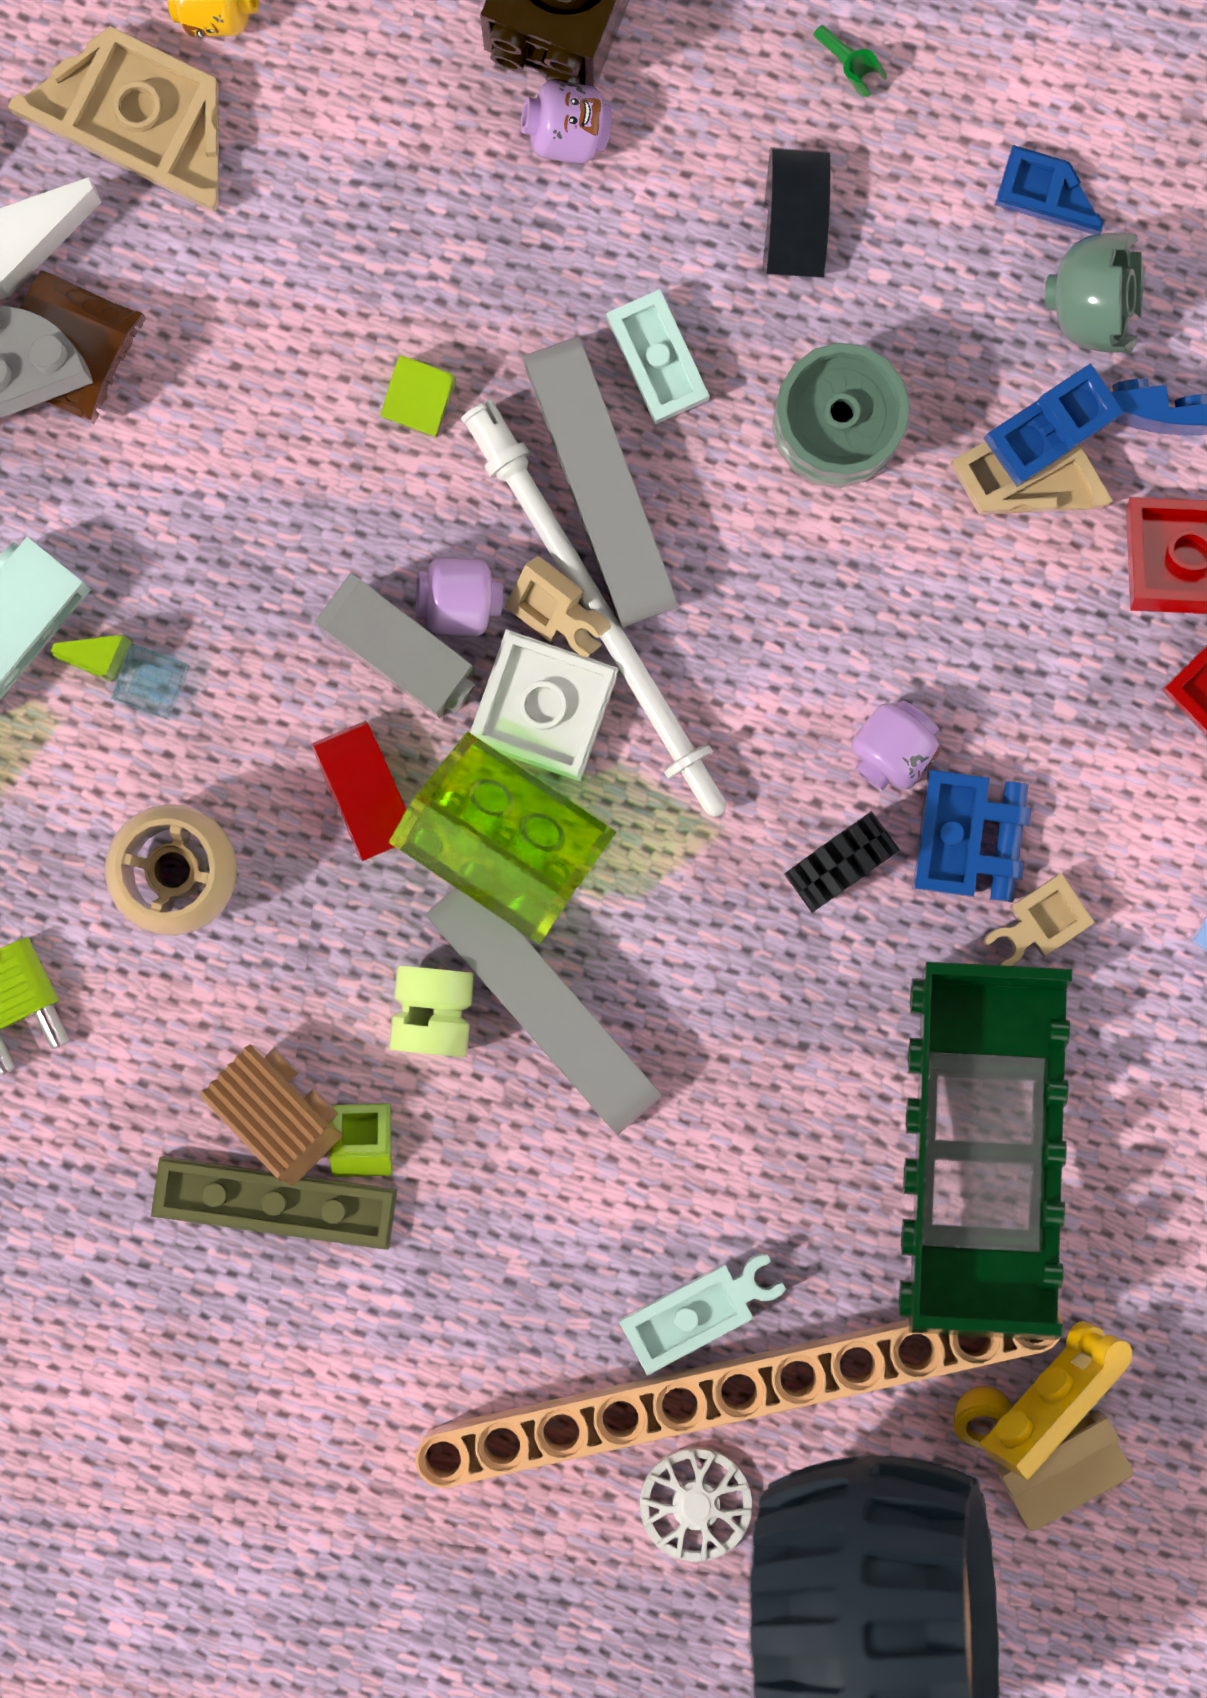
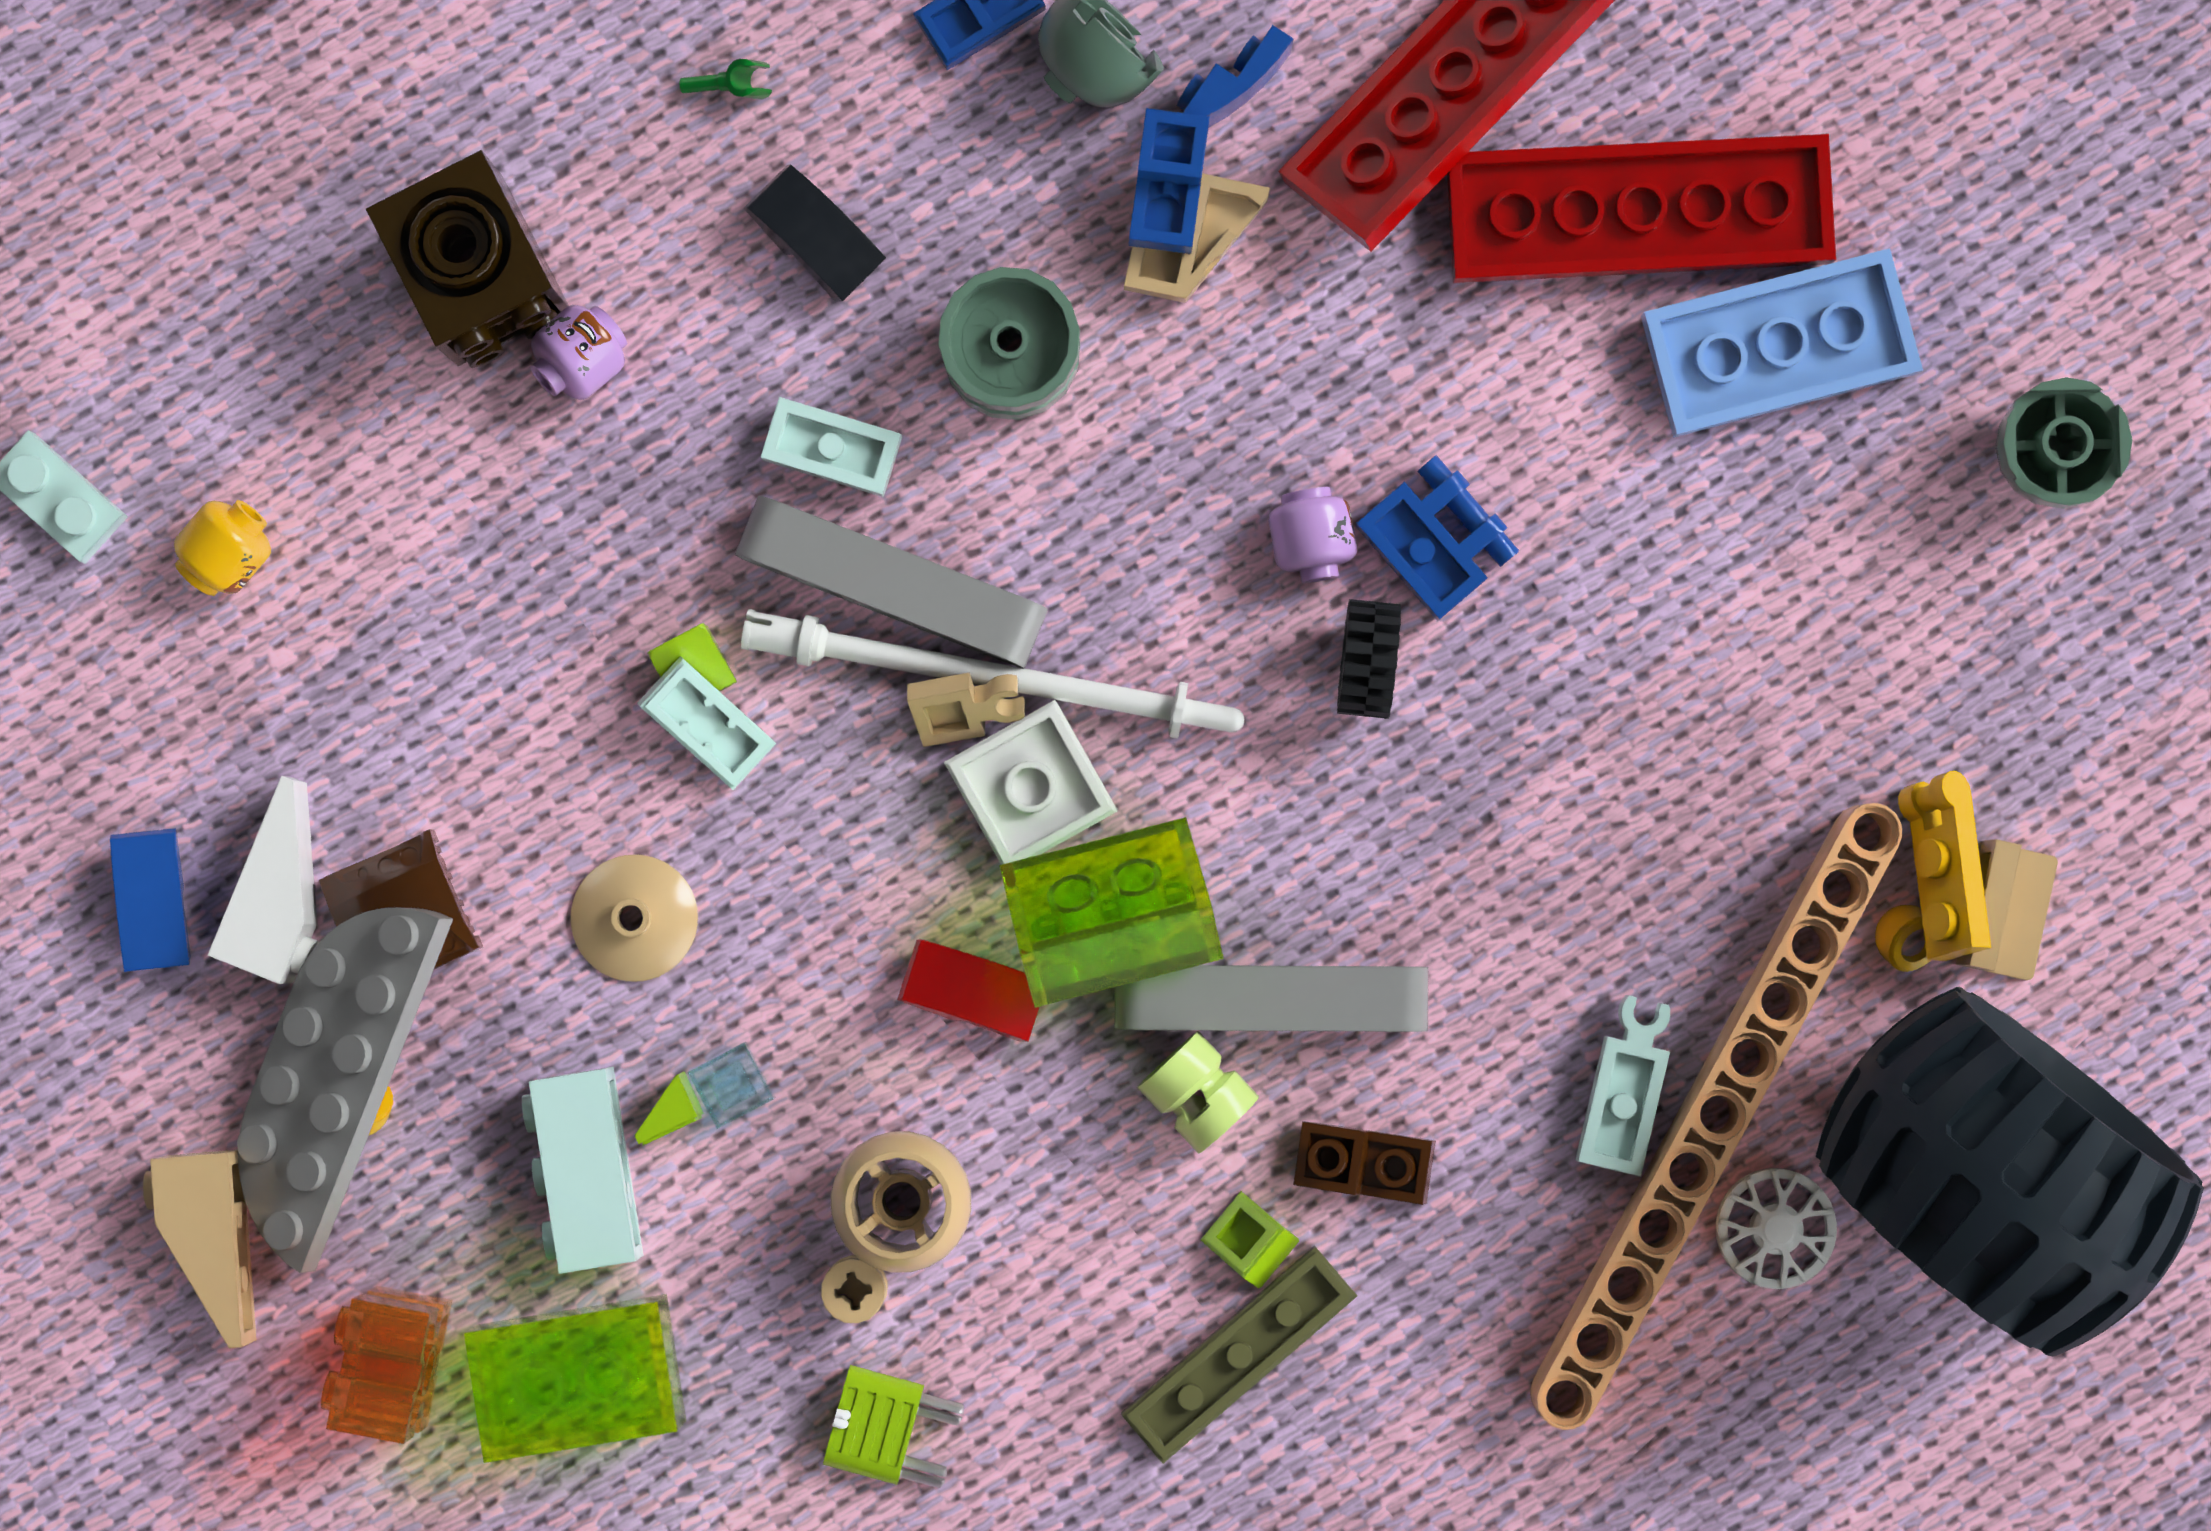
camera: 45 degrees left, 0 degrees up
(85, 893) = (855, 1286): none -> tan wheel
(135, 112) = (260, 691): tan wing -> none
(227, 534) = (667, 922): none -> tan dish
(272, 1113) = (1168, 1292): medium nougat brick -> none
(387, 440) = (706, 723): none -> light aqua plate
(396, 647) = (882, 862): light grey slope -> none
(457, 596) = (883, 777): lavender head -> none
(486, 1172) = (1364, 1162): none -> reddish brown slope
(986, 1151) = (1701, 748): dark green window -> none
(1046, 918) = (1556, 535): tan plate -> none

